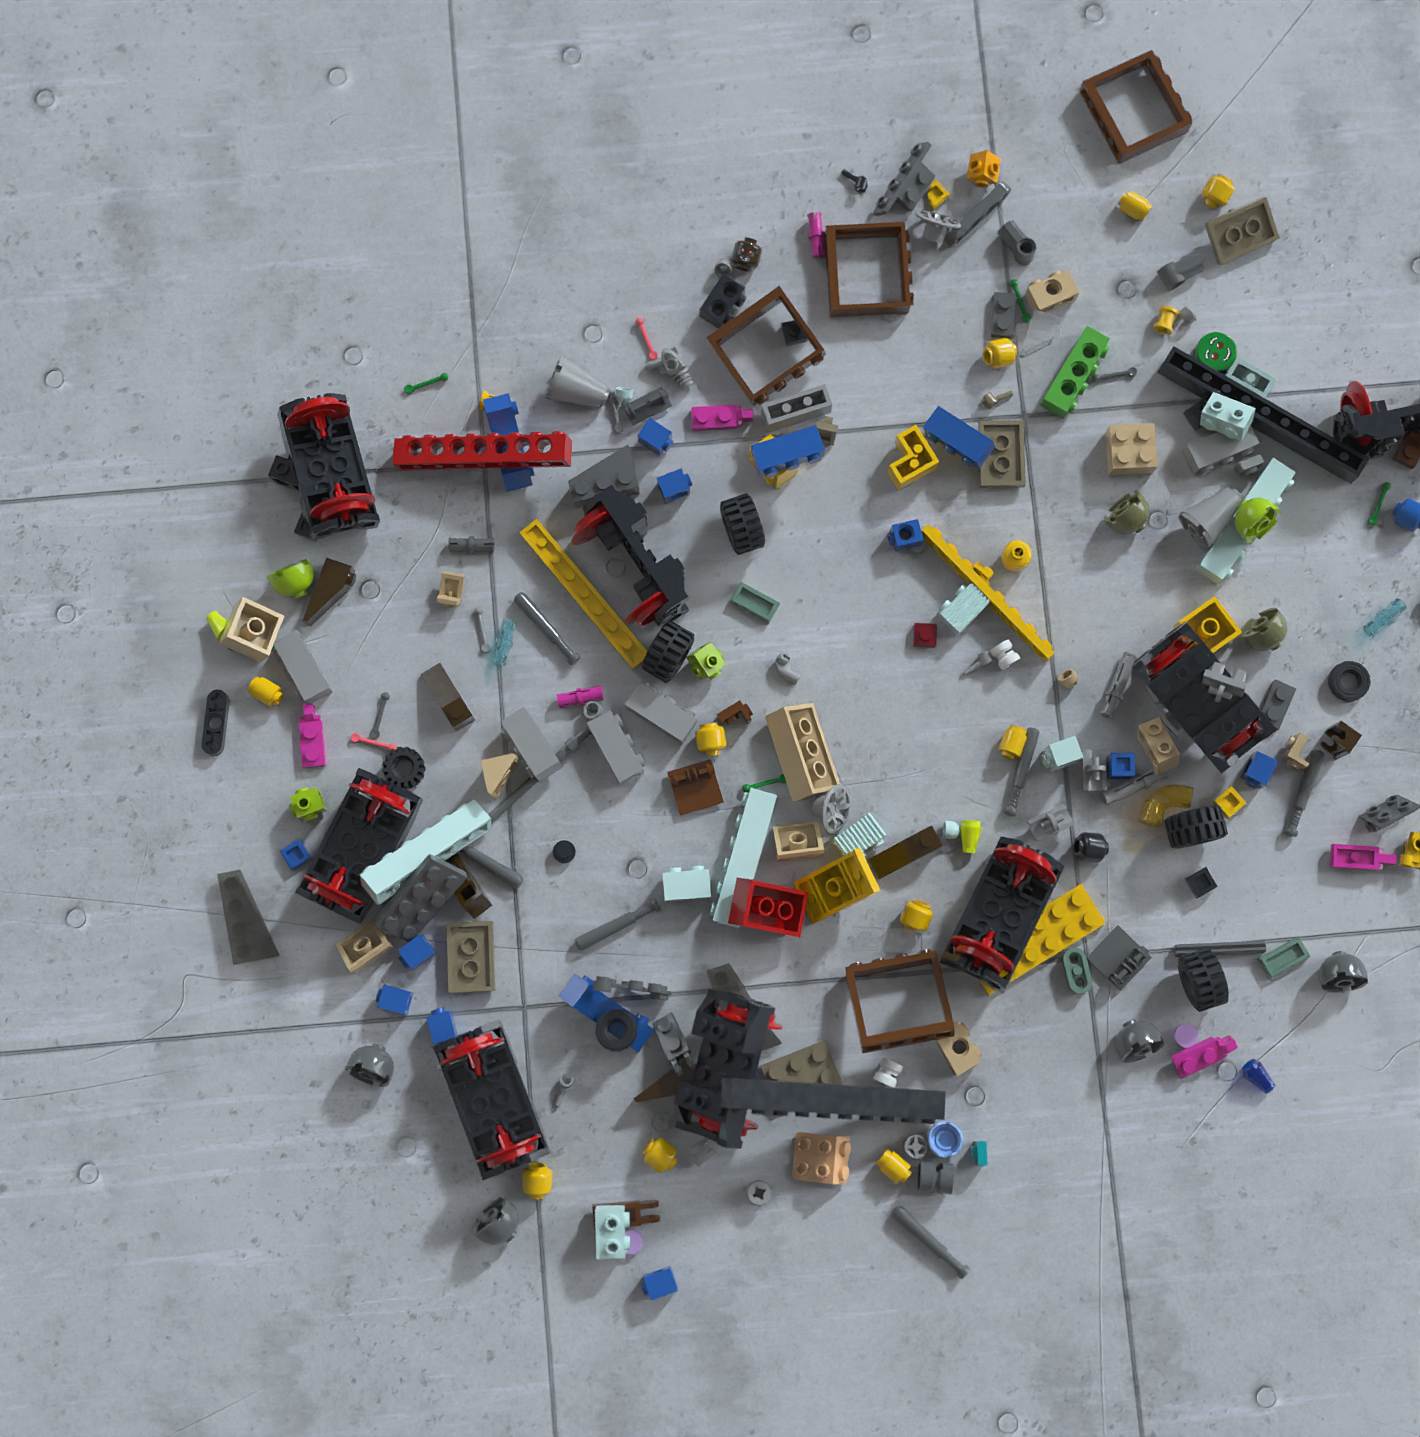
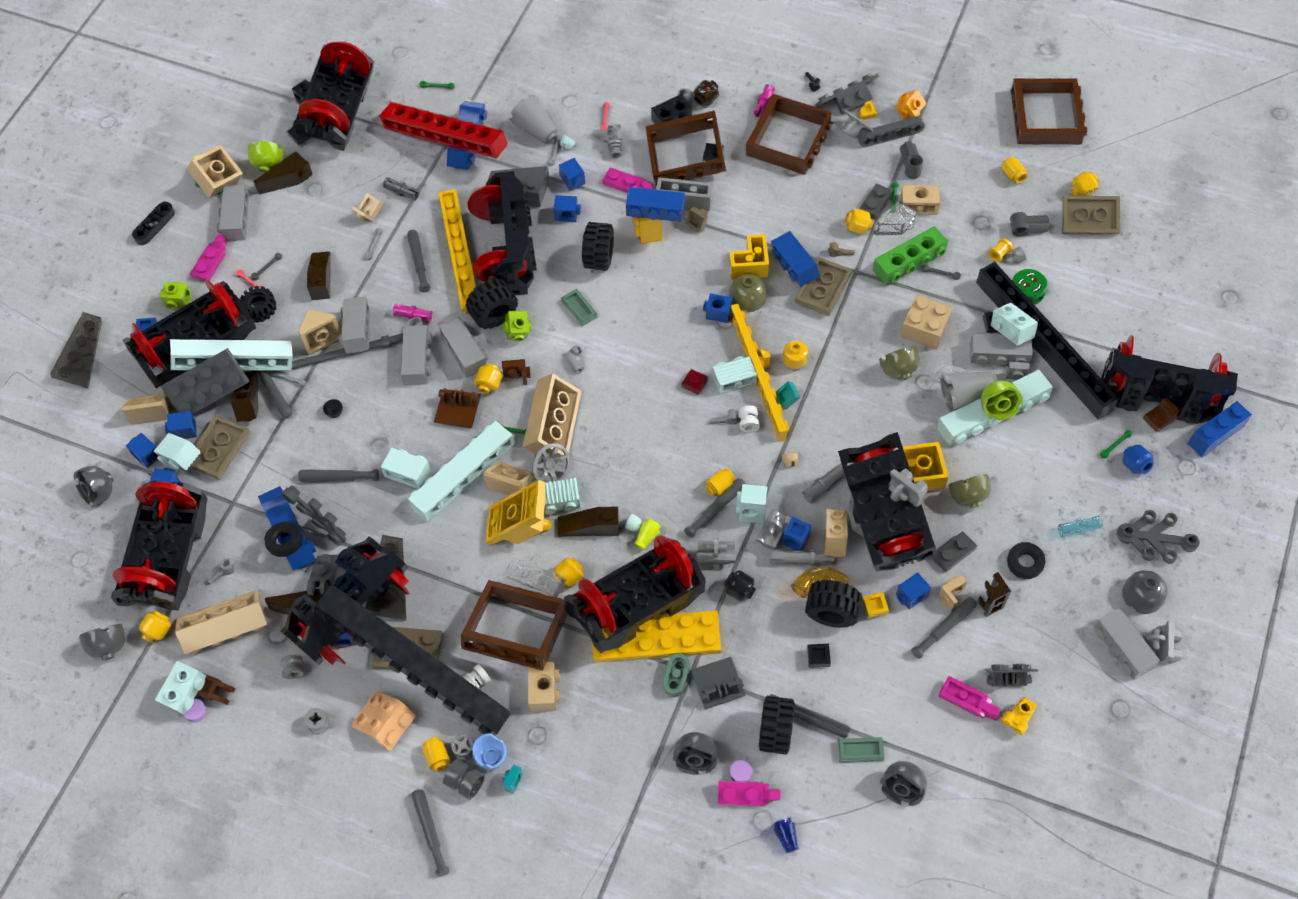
camera: 30 degrees right, 20 degrees down
(265, 691) = (199, 216): yellow brick -> none
(436, 987) = (176, 452): none -> light aqua brick
(504, 642) = (382, 256): clear light blue pin -> none
(509, 837) = (273, 373): none -> light grey hinge
(599, 1141) = (221, 622): none -> tan slope
(647, 406) = (584, 154): dark grey hinge -> none
(659, 1283) = (194, 751): blue brick -> none
(660, 1155) = (258, 652): yellow head -> none
(768, 907) = (454, 506): red brick -> none
(926, 500) = (748, 292): none -> olive cylinder
(1030, 607) = (787, 395): none -> teal plate
(1251, 377) = (1050, 309): light aqua brick -> none

